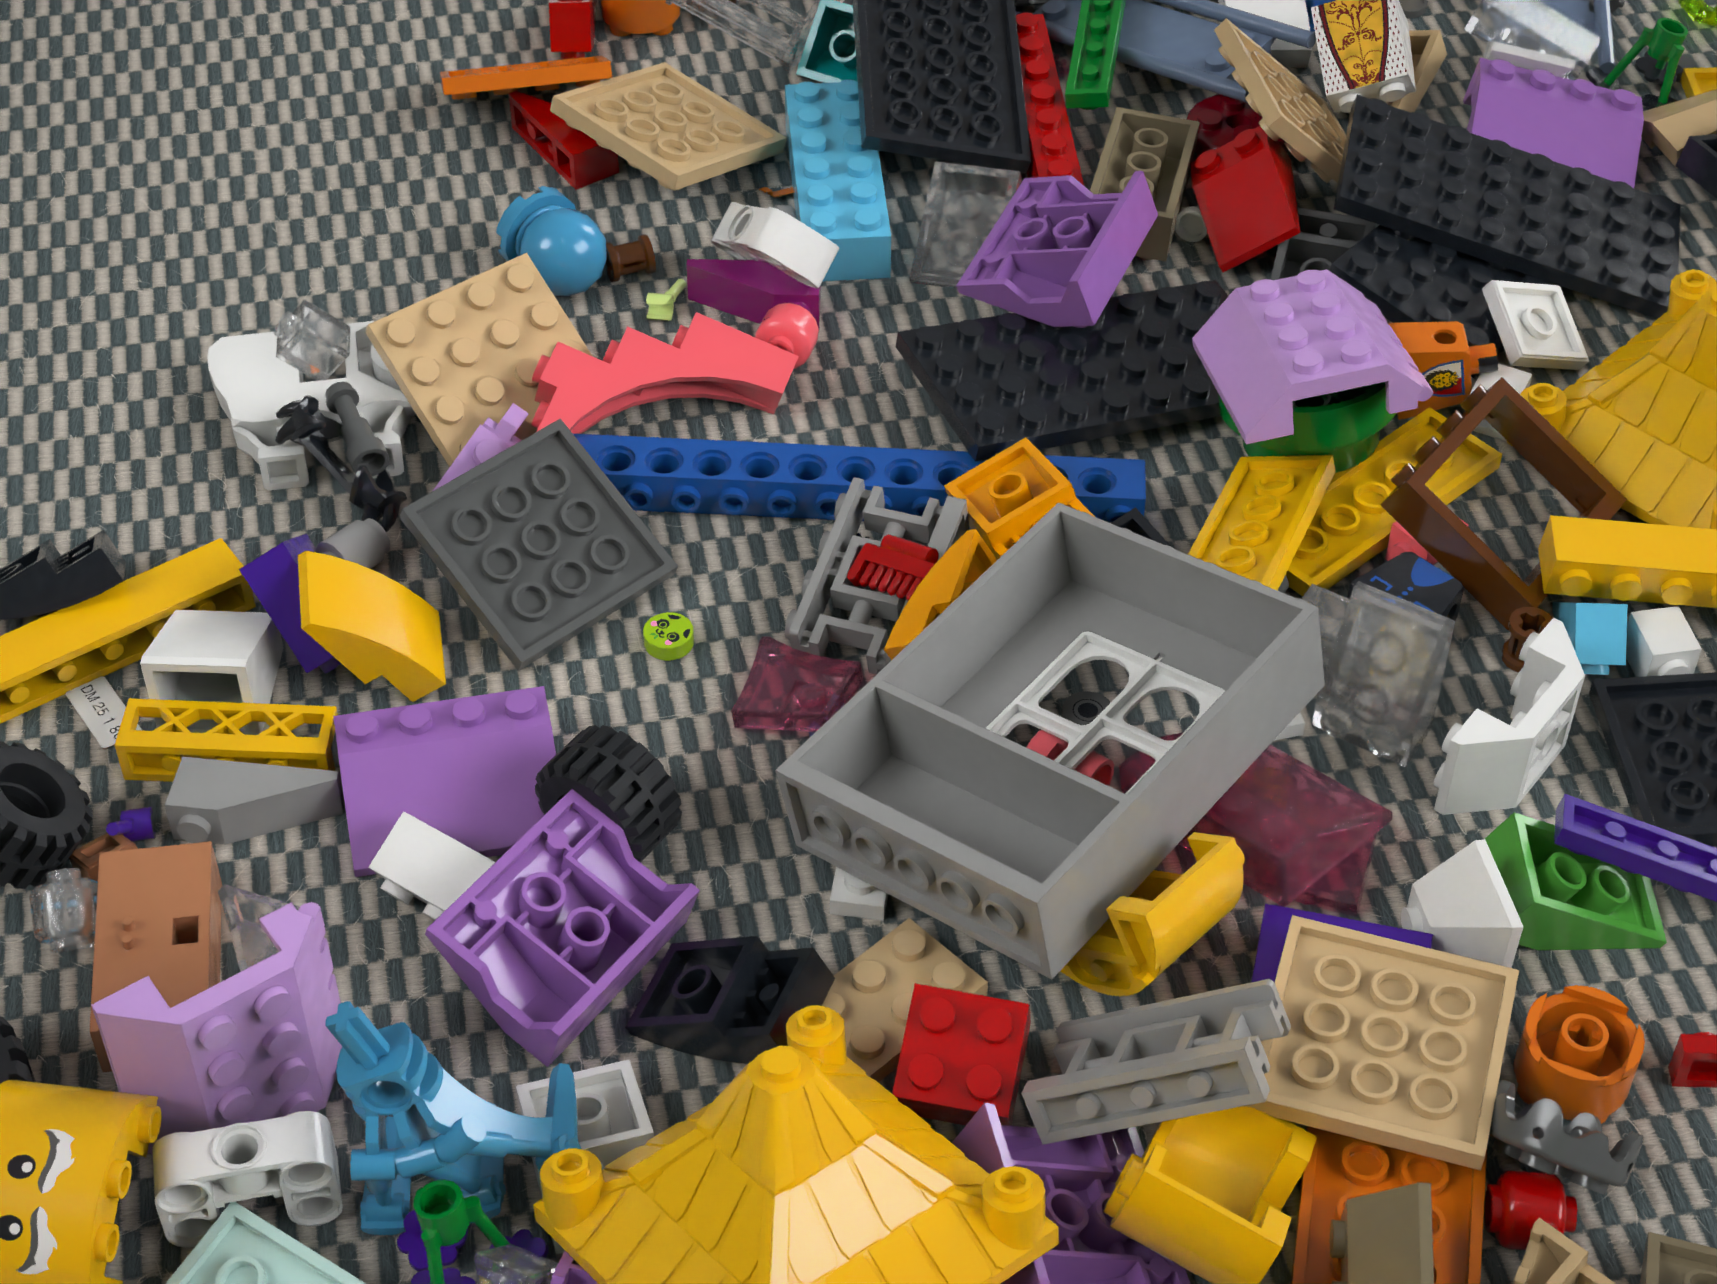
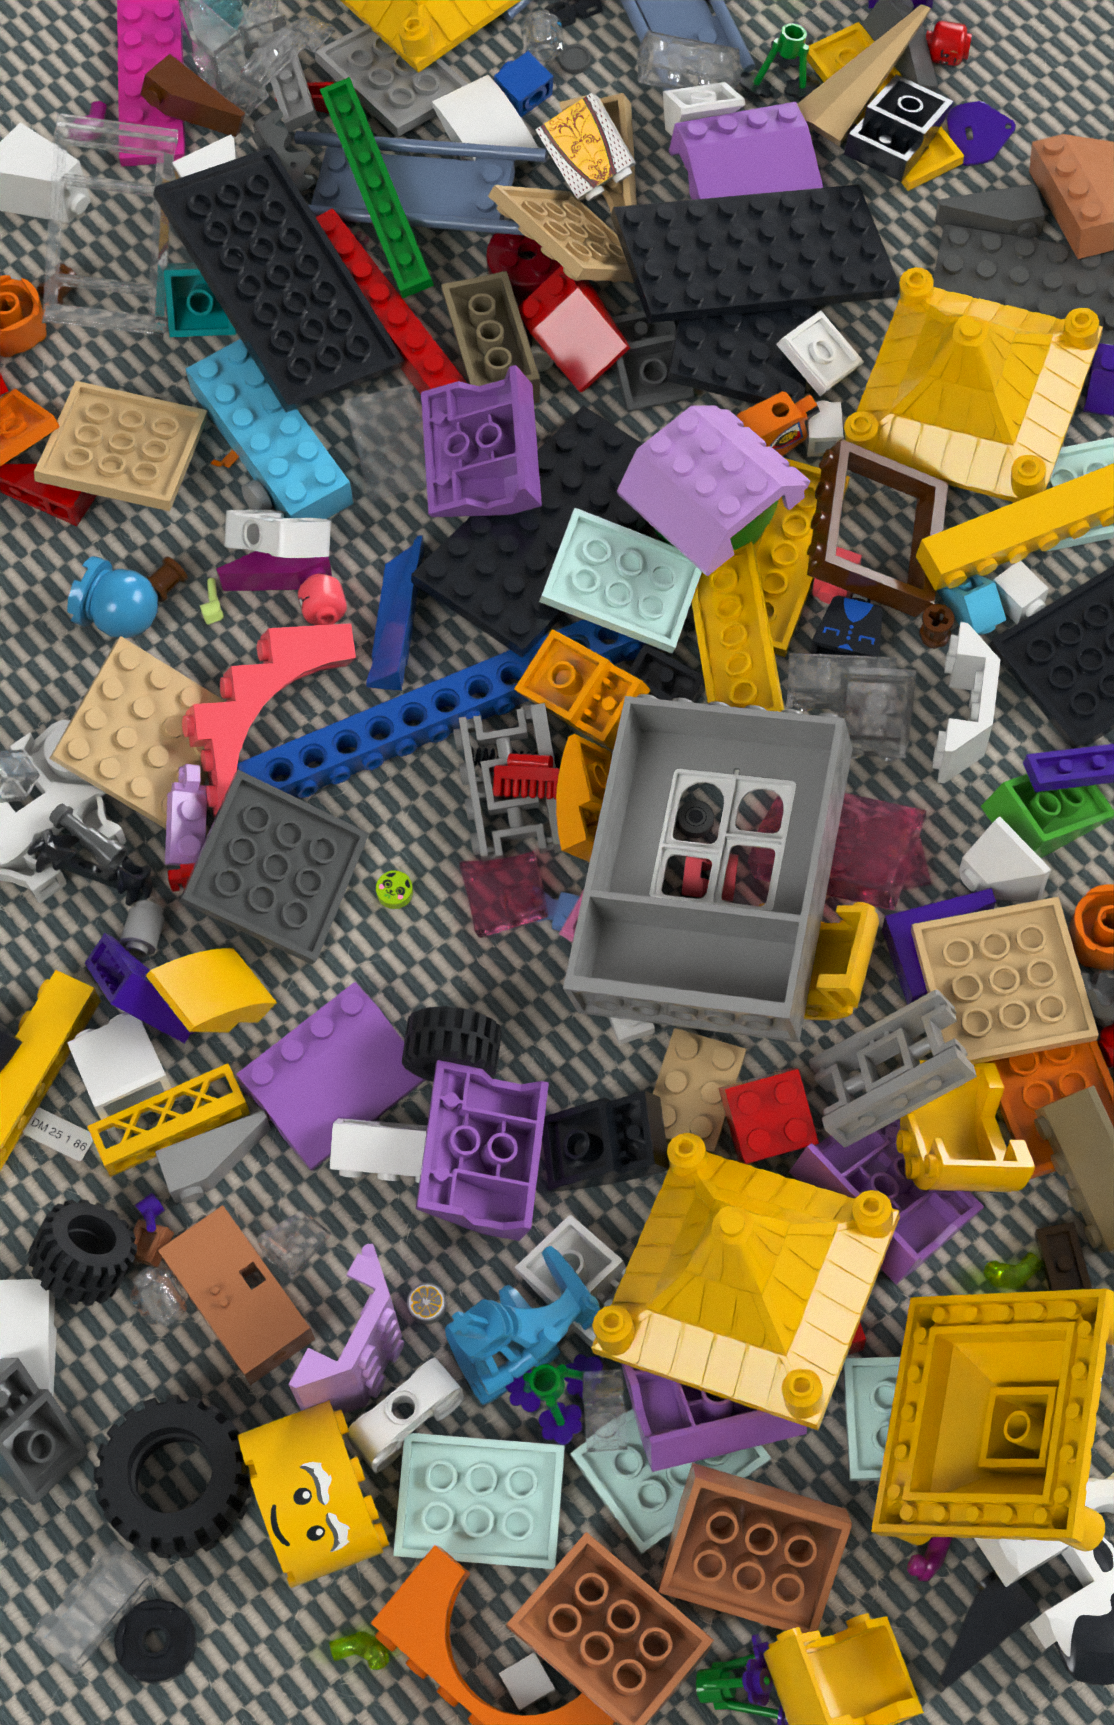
camera: 25 degrees left, 20 degrees up
(852, 395) = (395, 619): none -> blue wedge
(1145, 430) = (622, 581): none -> light aqua plate

